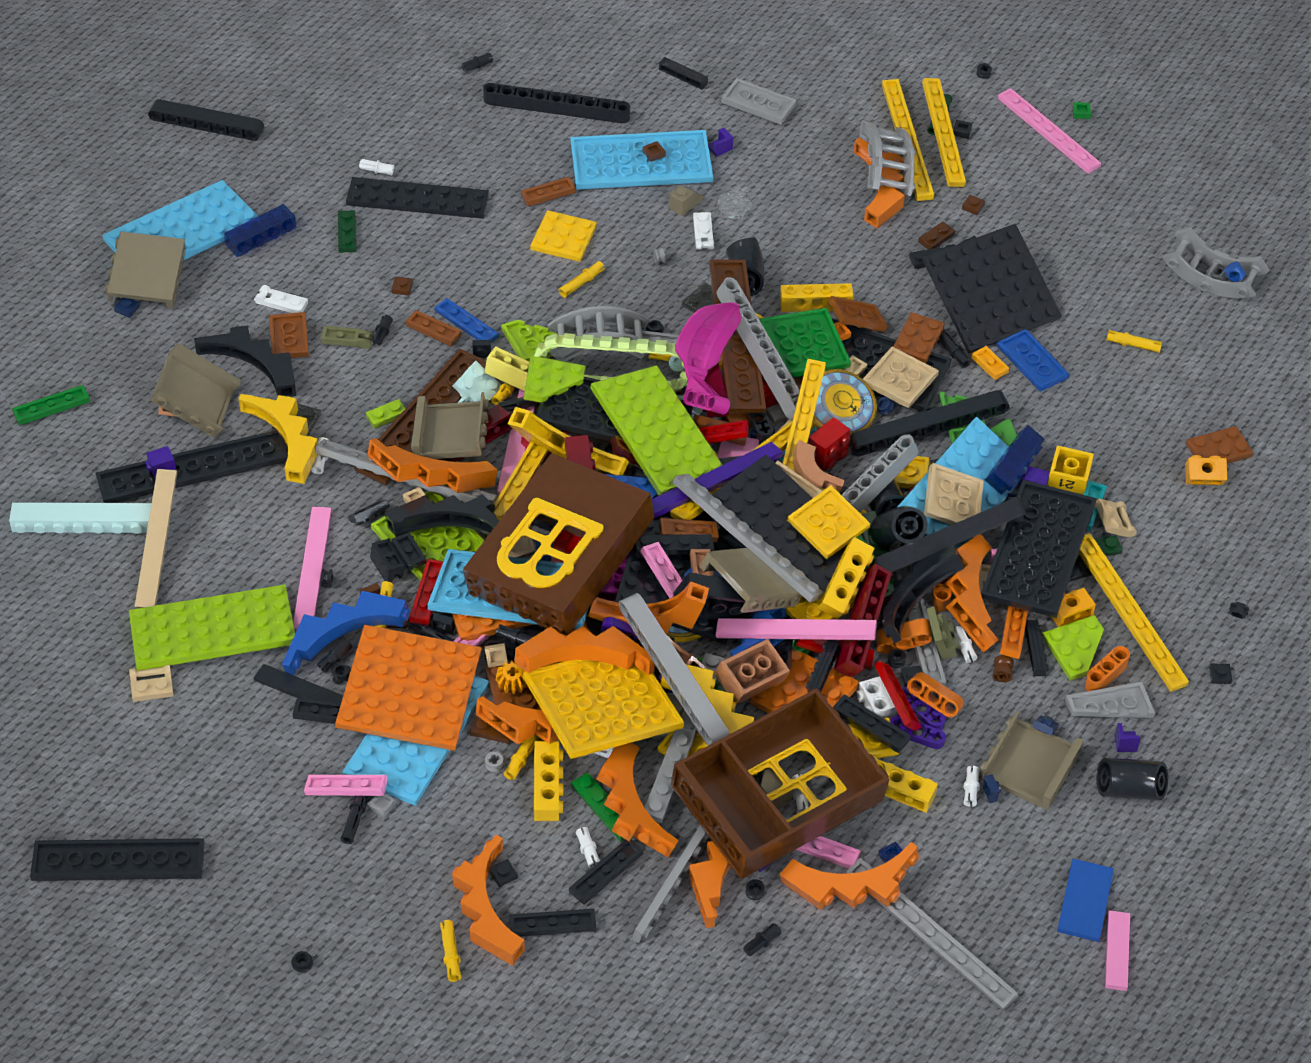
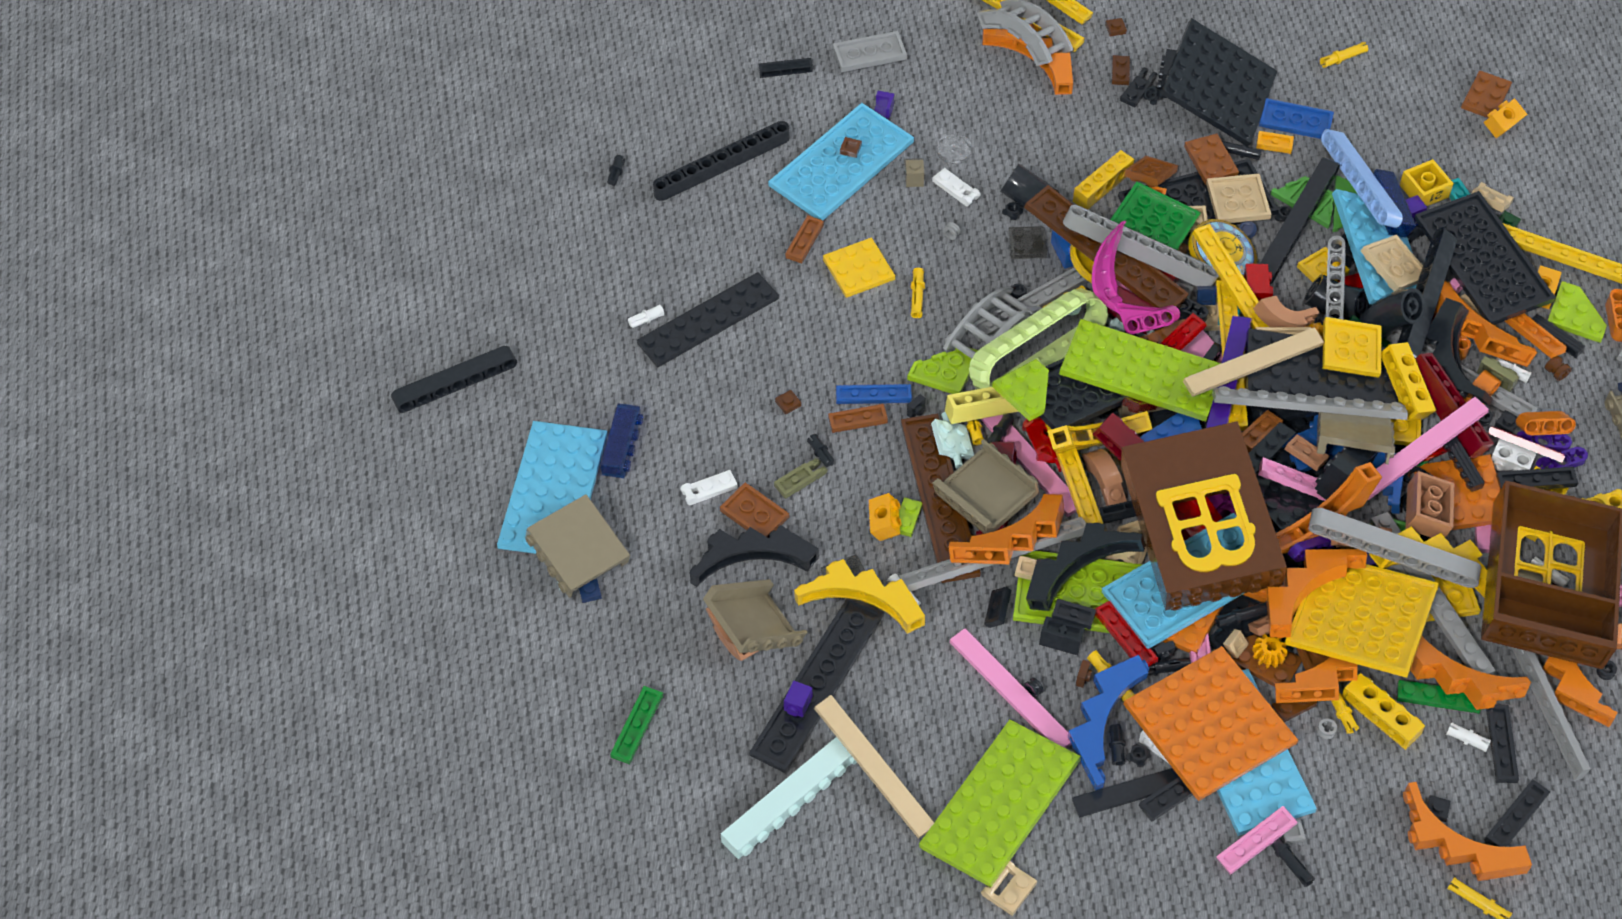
camera: 40 degrees left, 5 degrees up
(347, 231) = (688, 389): dark green plate -> none
(366, 398) = (884, 517): none -> light orange brick
(736, 476) = (1253, 361): none -> tan tile
(782, 419) = (1206, 295): none -> dark blue tile
(1012, 426) = (1361, 178): none -> light blue beam

